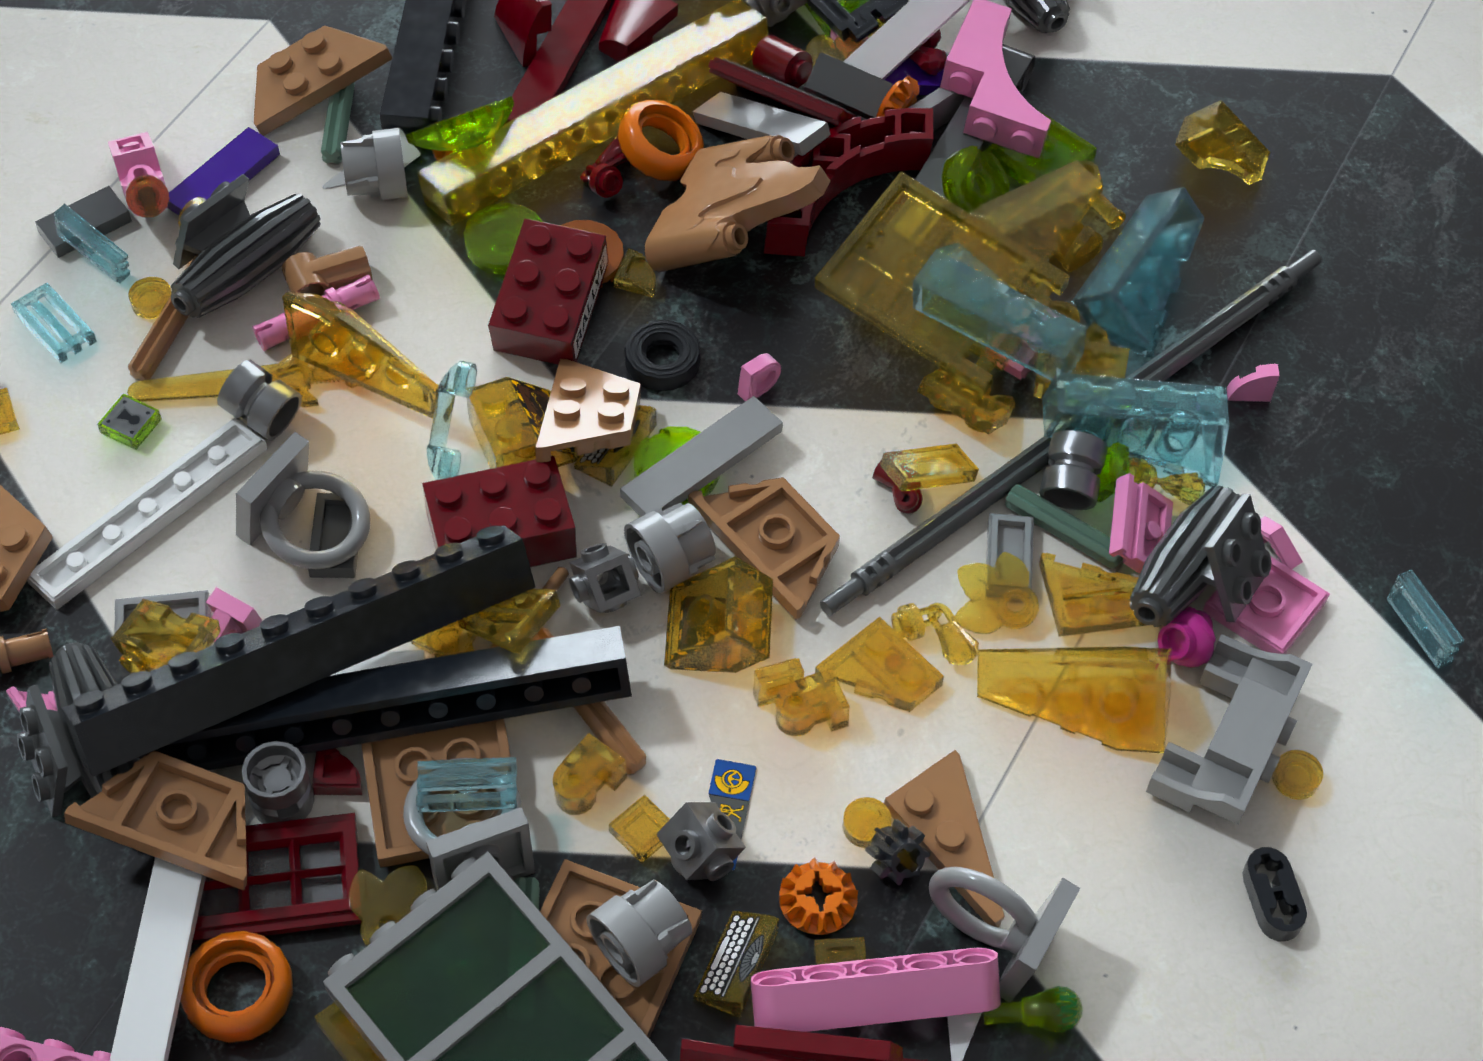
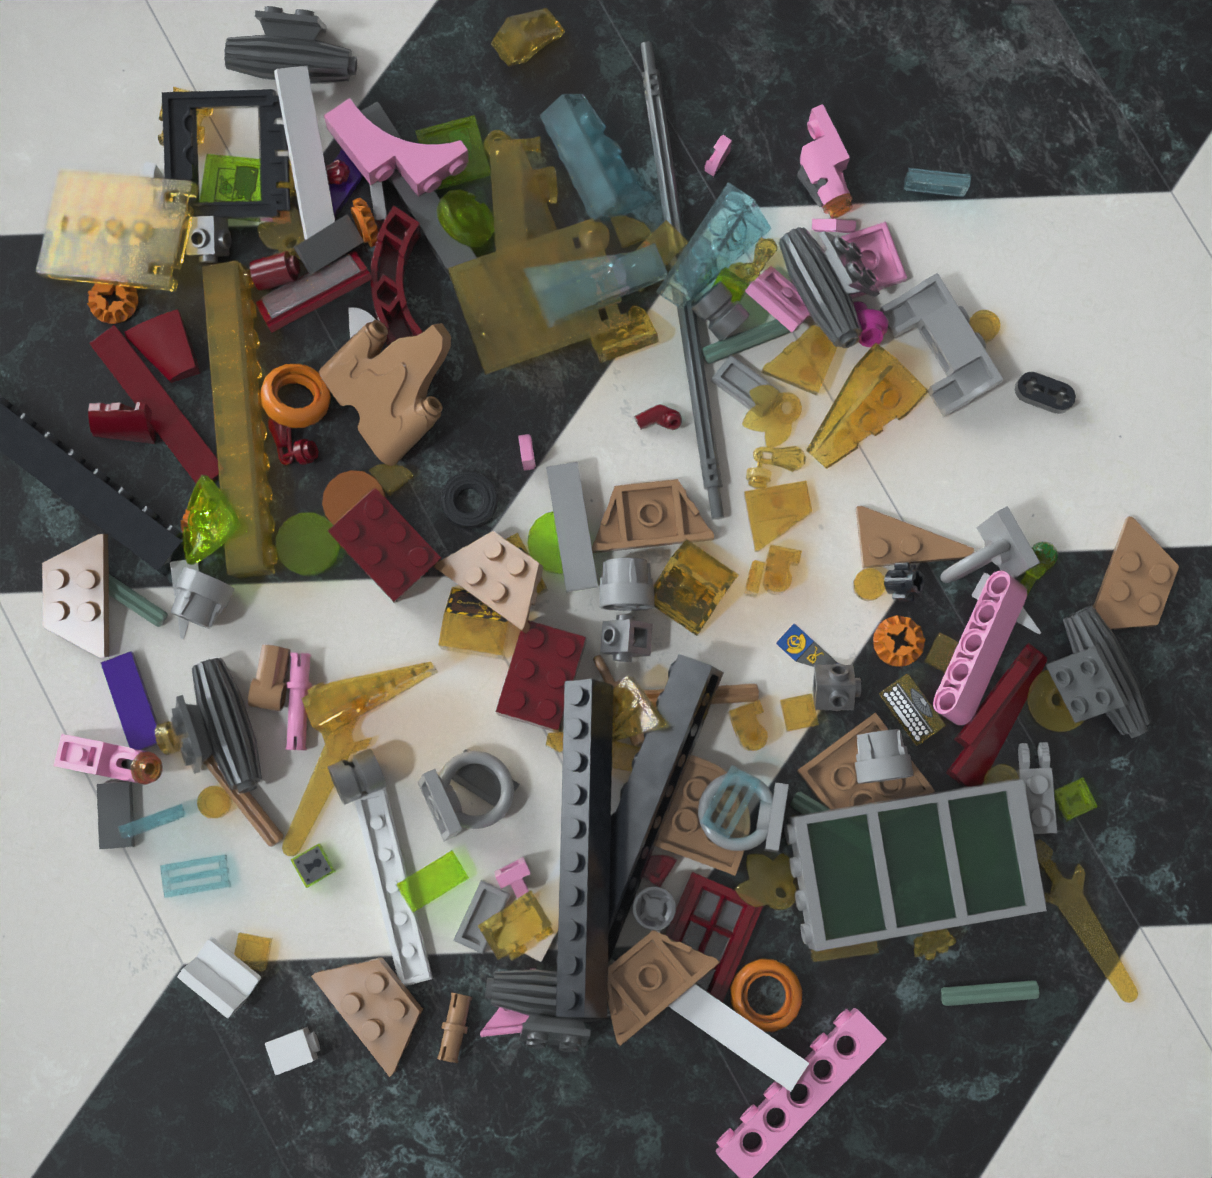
camera: 55 degrees left, 25 degrees up
(176, 539) = (432, 881): none -> clear neon green tile
(457, 382) = (436, 650): clear light blue bar -> none
(755, 120) = (329, 322): light grey tile -> none
(929, 467) = (661, 393): clear yellow tile -> none
(1336, 492) = (823, 165): none -> bright pink plate

